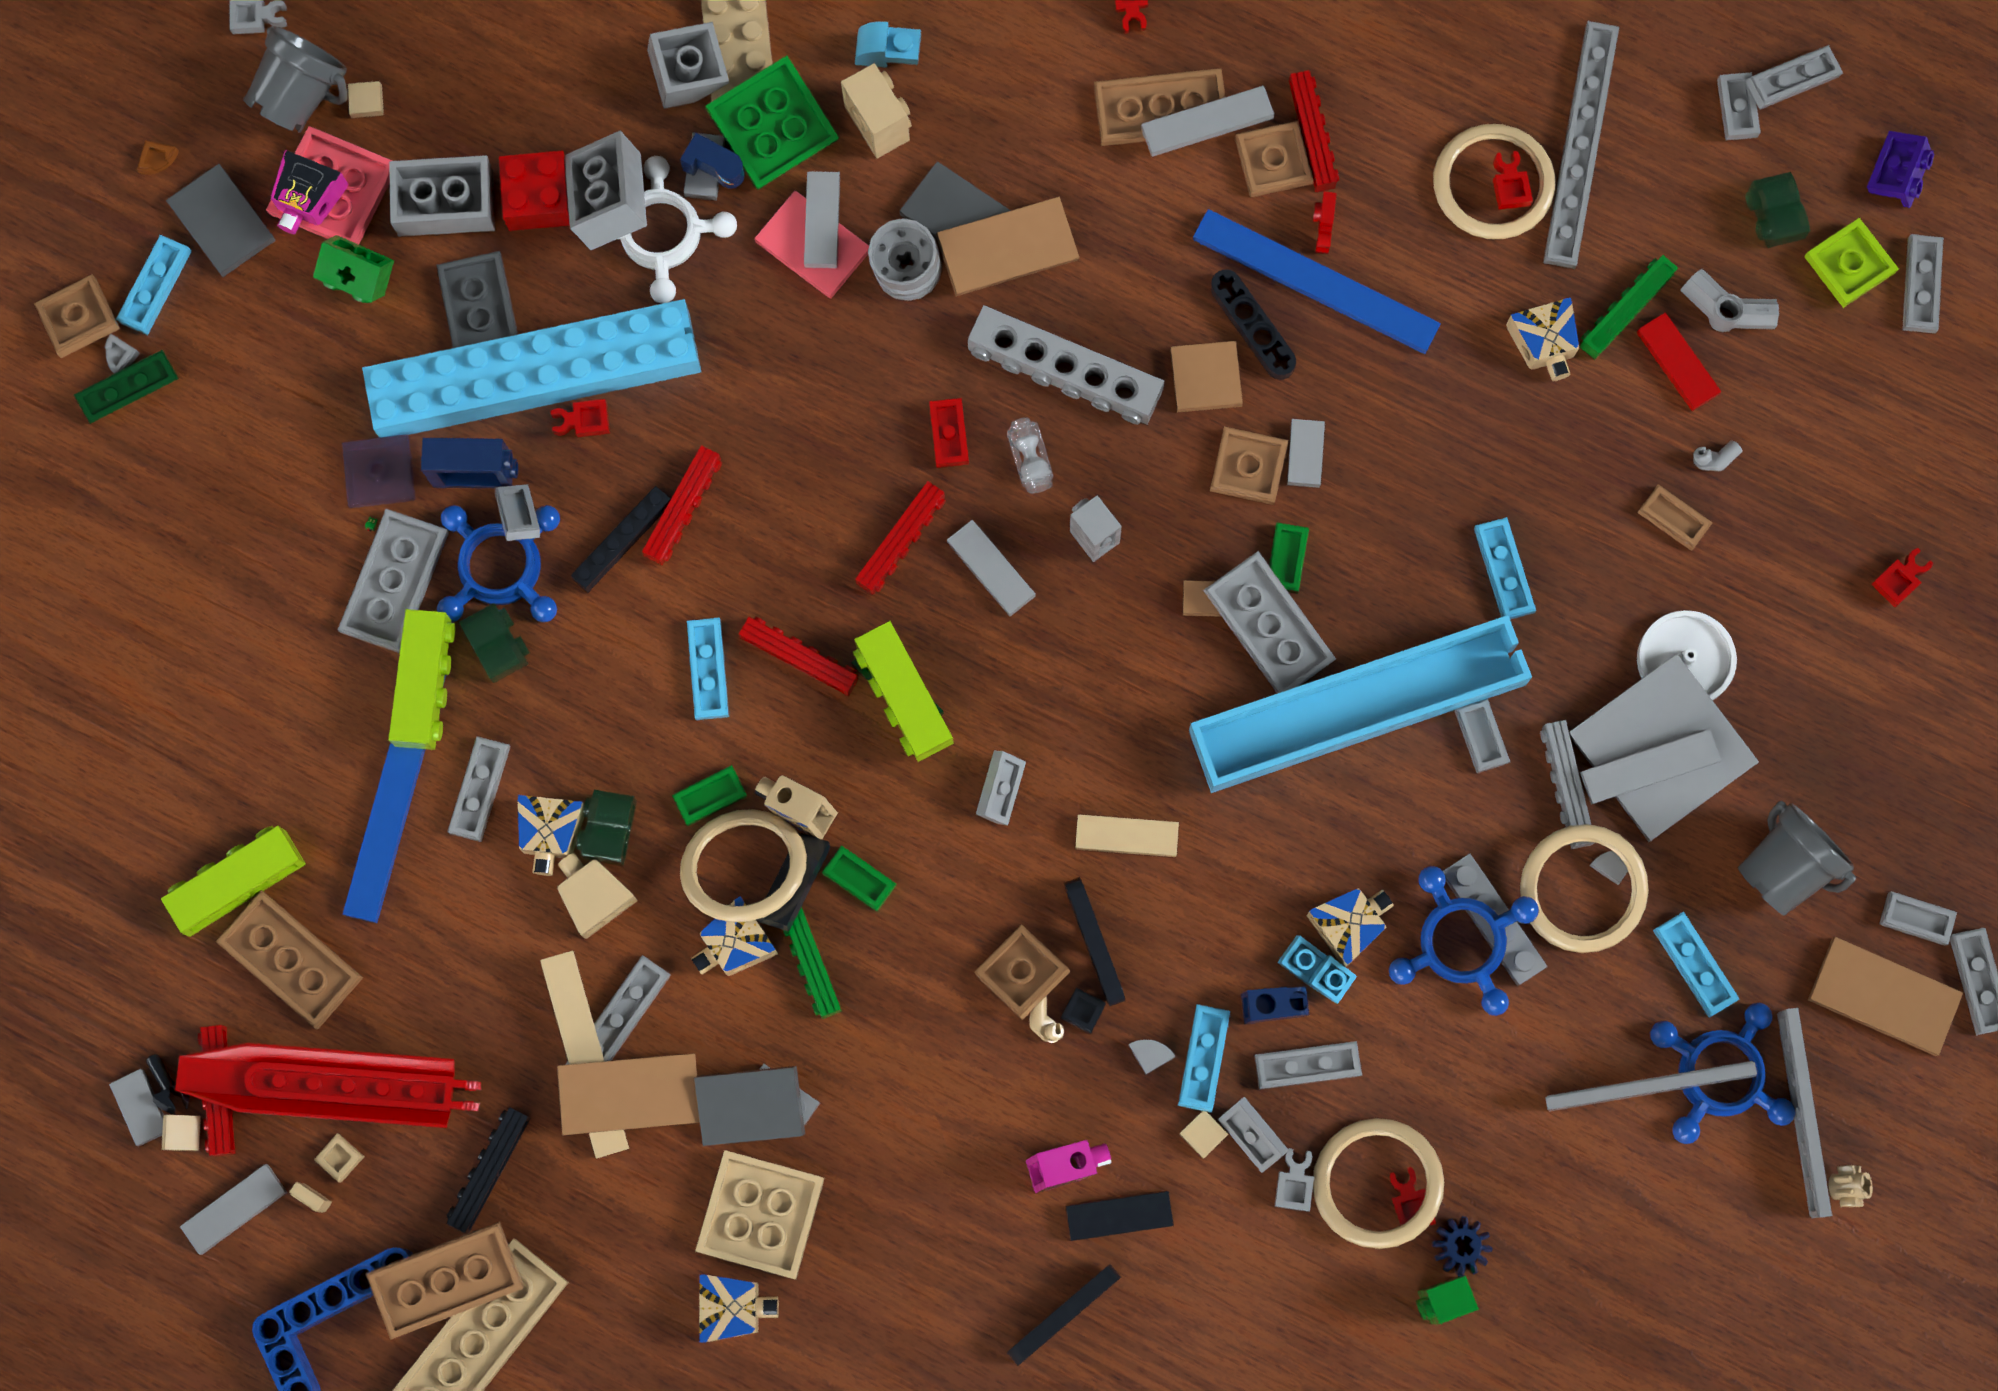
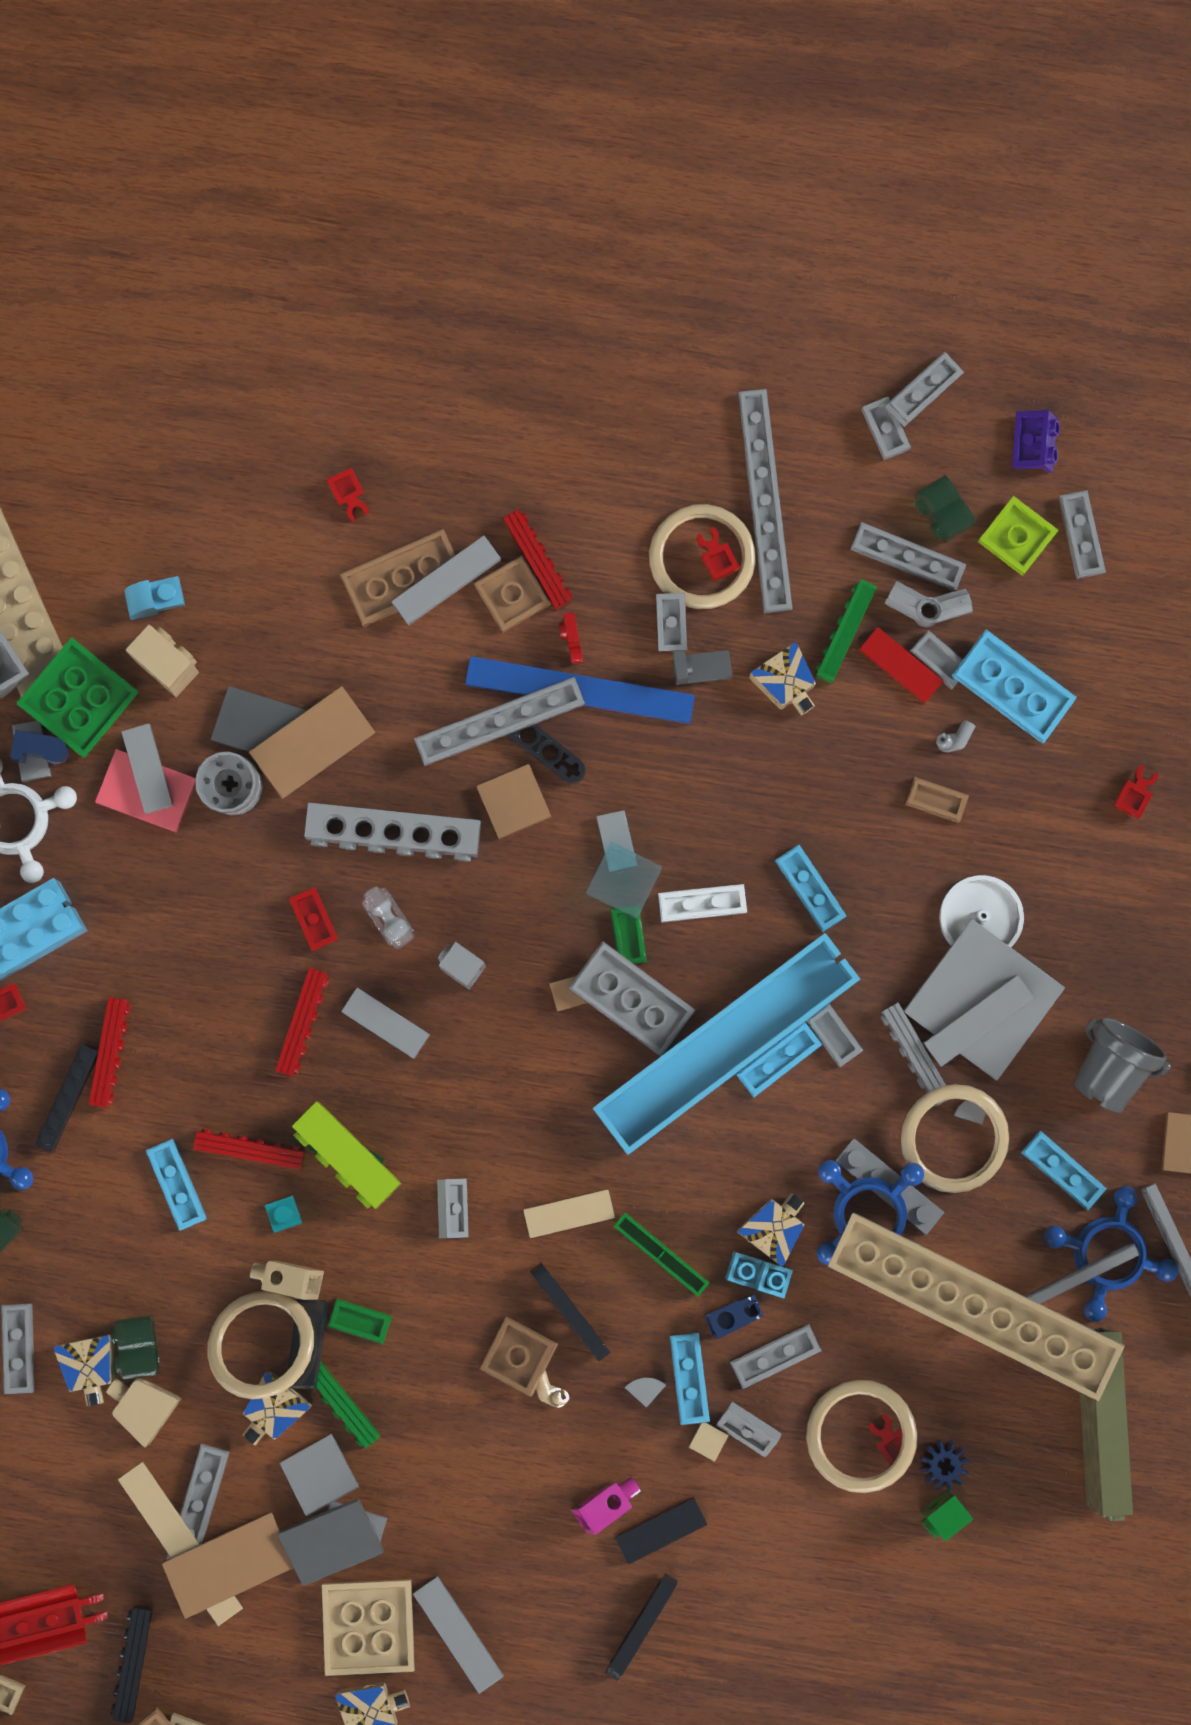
camera: 25 degrees left, 5 degrees up
(709, 795) = (212, 1291): green tile -> none
(760, 1030) = (319, 1475): none -> light grey tile
(813, 737) = (283, 1214): none -> teal plate
(856, 1257) = (458, 1634): none -> light grey tile
(1083, 1010) = (579, 1371): black tile -> none
(1215, 911) = (661, 1254): none -> green piece
(1218, 285) = (499, 721): none -> light grey tile
(1249, 465) = (570, 865): medium nougat tile -> none
(1295, 1188) = (796, 1460): light grey plate -> none
(1301, 494) = (624, 880): none -> clear light blue tile
(1379, 548) = (702, 903): none -> white tile
(1412, 742) = (779, 1059): none -> medium azure tile
(1439, 238) = (671, 622): none -> light grey plate
(1456, 296) = (701, 667): none -> dark grey bracket
(1557, 1072) = (976, 1306): none -> tan plate
(1661, 1251) = (1107, 1445): none -> olive brick
(1721, 249) = (908, 557): none -> light grey tile
(1725, 368) = (937, 657): none -> light grey tile
(1798, 421) = (1014, 686): none -> medium azure tile

